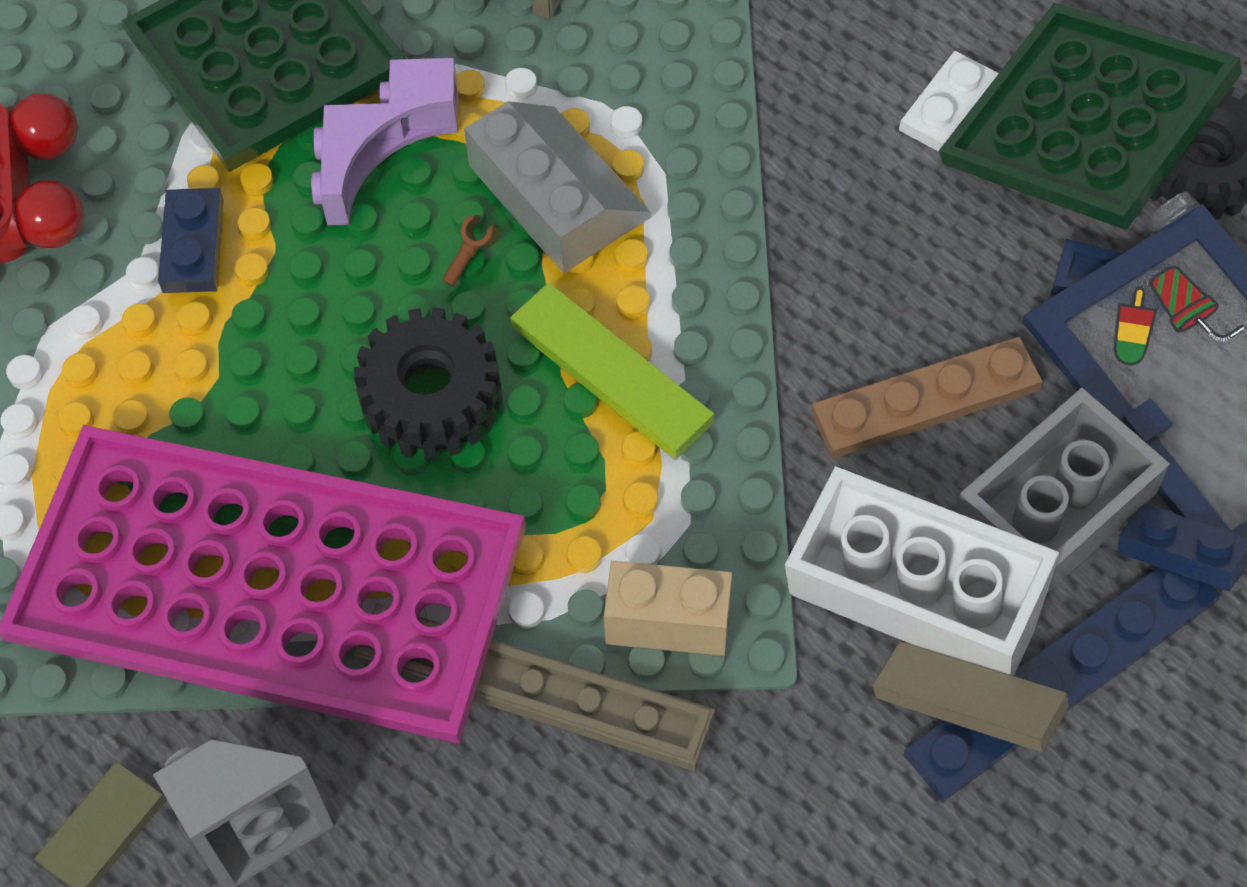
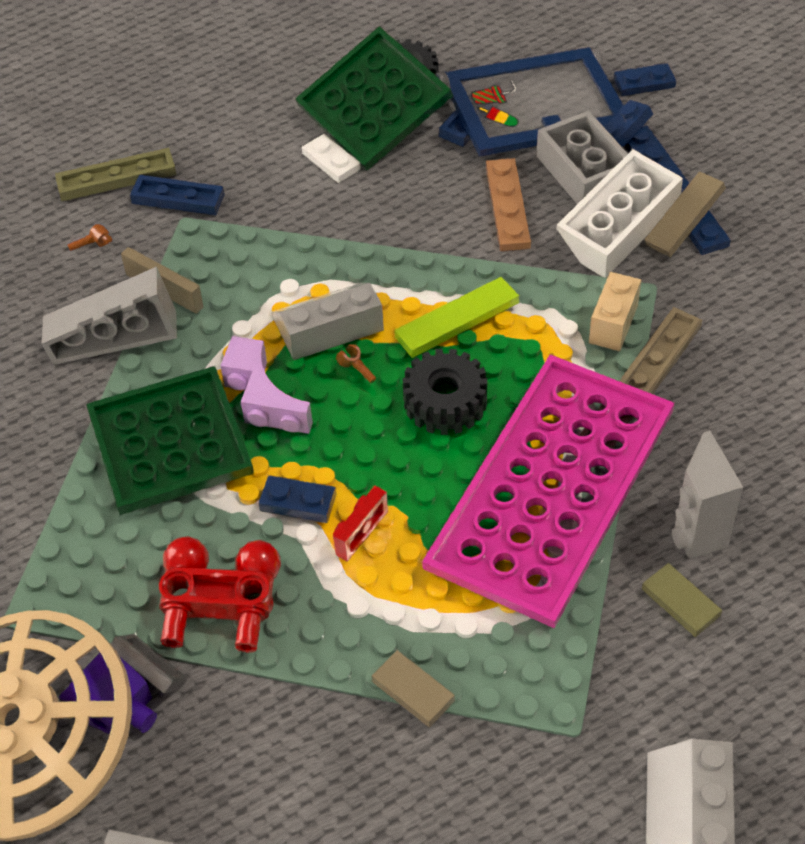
camera: 75 degrees left, 10 degrees down
(145, 328) = (366, 516): none -> red plate

